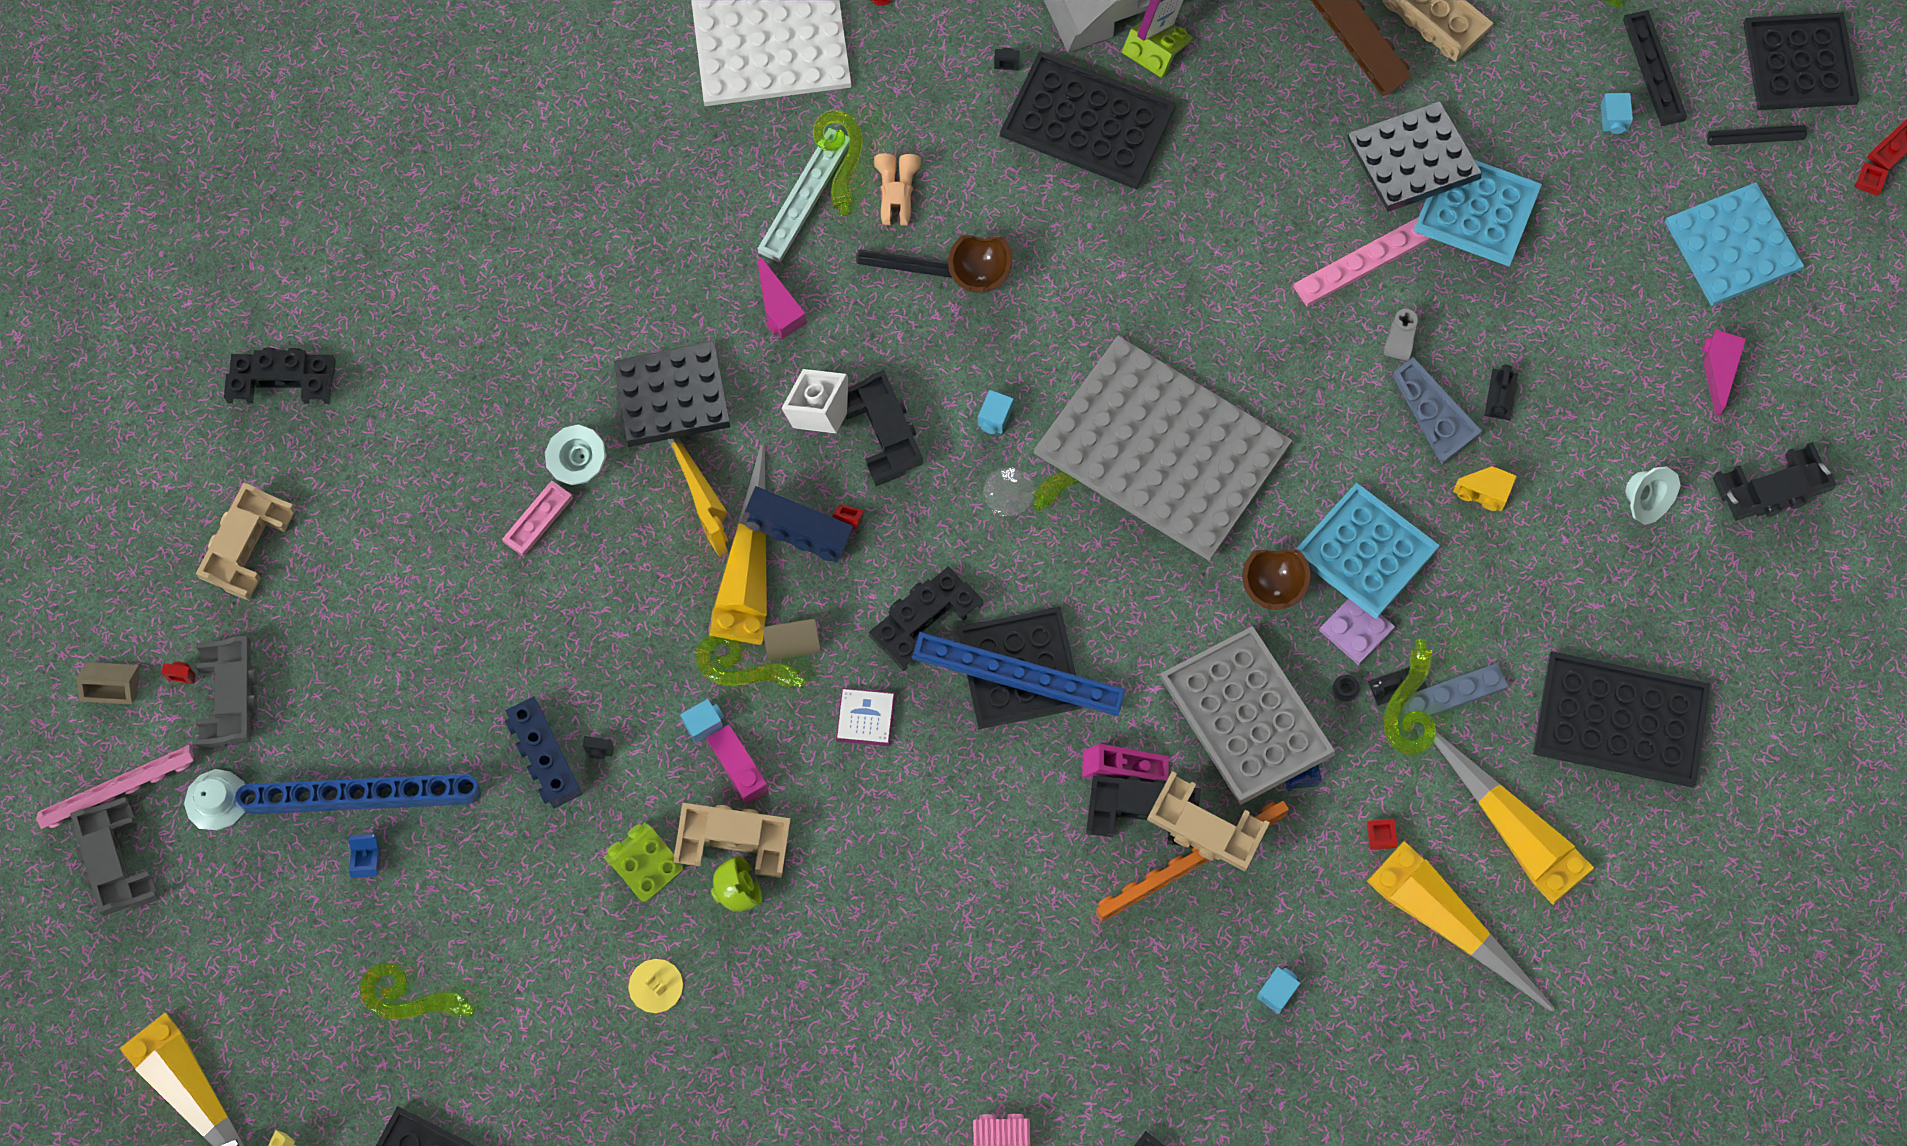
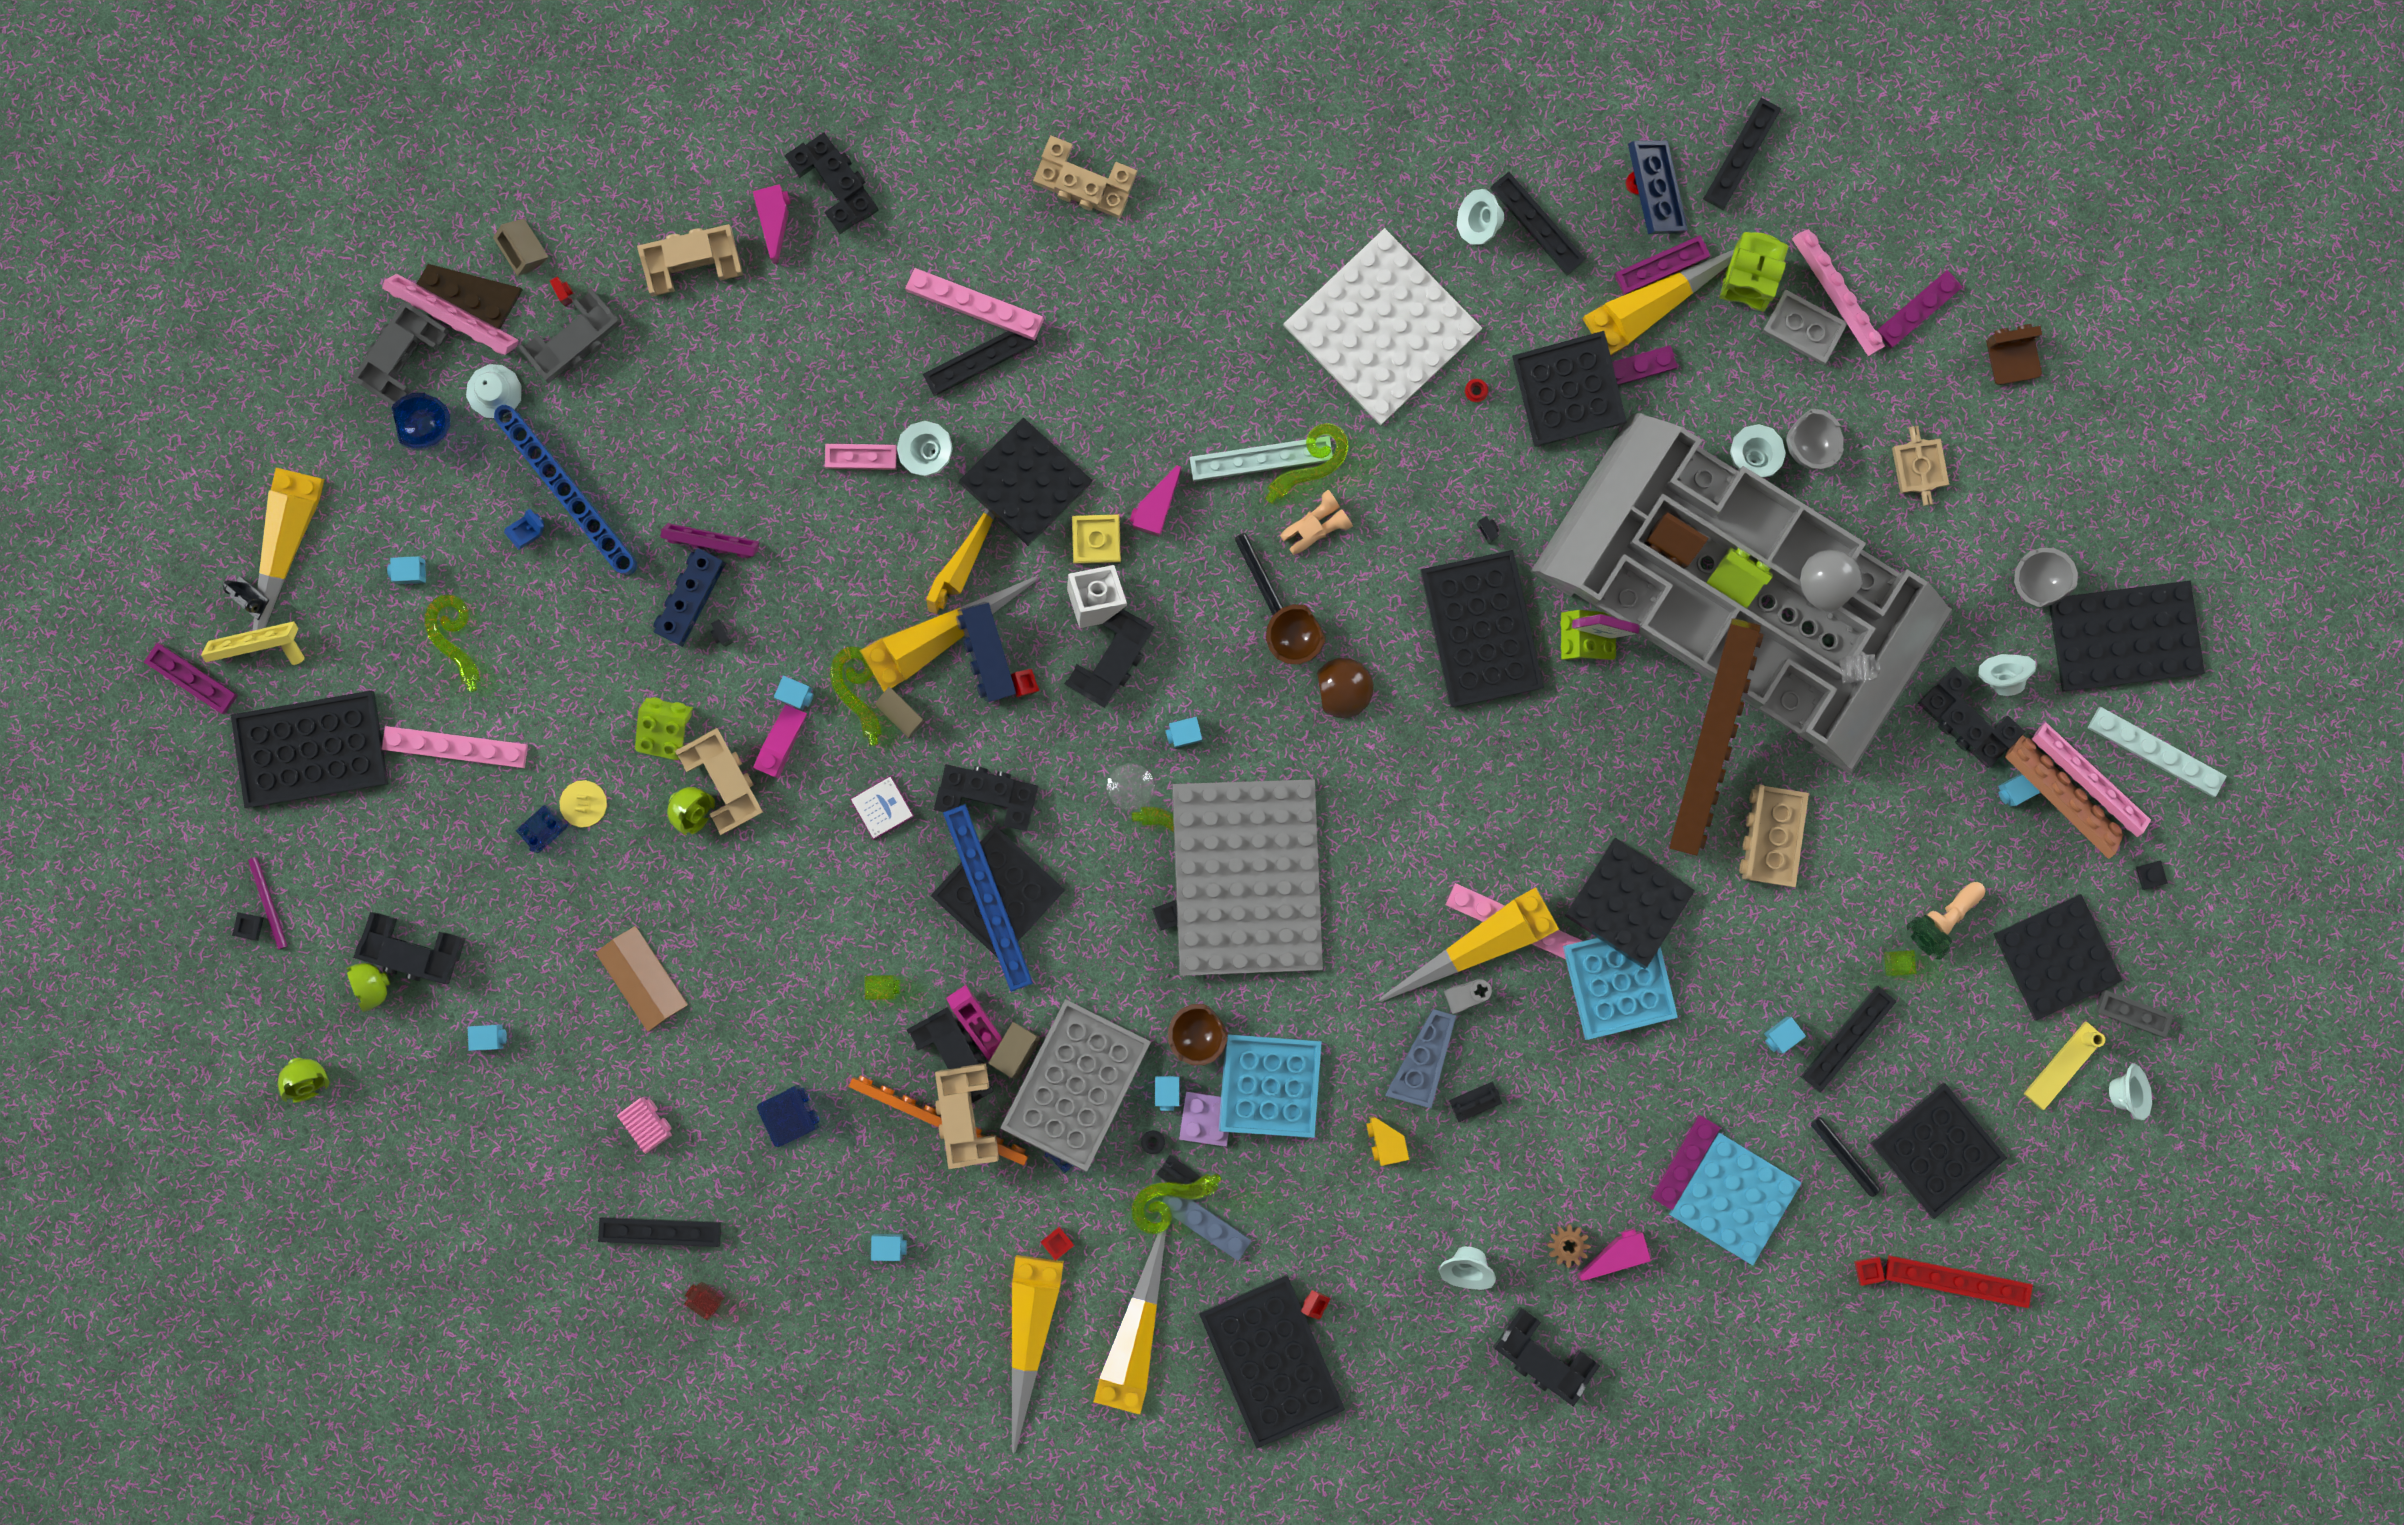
camera: 50 degrees right, 15 degrees up
(118, 753) = (476, 295): none -> dark brown wing
(189, 878) = (420, 421): none -> clear blue cylinder
(263, 445) = (773, 215): none -> dark pink slope
(313, 992) = (407, 570): none -> medium azure brick
(453, 179) = (1081, 185): none -> tan bracket
(482, 333) = (974, 304): none -> bright pink plate
(510, 1068) = (454, 747): none -> bright pink plate
(516, 692) = (700, 539): none -> magenta plate
(534, 361) = (976, 361): none -> black plate
(651, 1038) = (541, 828): none -> clear blue piece
(767, 372) = (1096, 539): none -> light yellow plate
(860, 1046) = (641, 978): none -> medium nougat slope
(1030, 828) = (881, 987): none -> clear neon green brick
(1055, 259) = (1344, 687): none -> reddish brown cylinder
(1089, 995) = (788, 1116): none -> clear blue bracket
(1147, 537) = (1166, 915): none -> black plate
(1175, 749) = (1015, 1050): none -> dark tan brick
(1308, 642) = (1167, 1092): none -> medium azure brick
(1367, 261) = (1510, 928): none -> yellow plate
(1594, 646) = (1315, 1305): none -> red plate
(1674, 262) = (1685, 1162): none -> magenta plate
(1694, 404) = (1564, 1254): none -> medium nougat gear

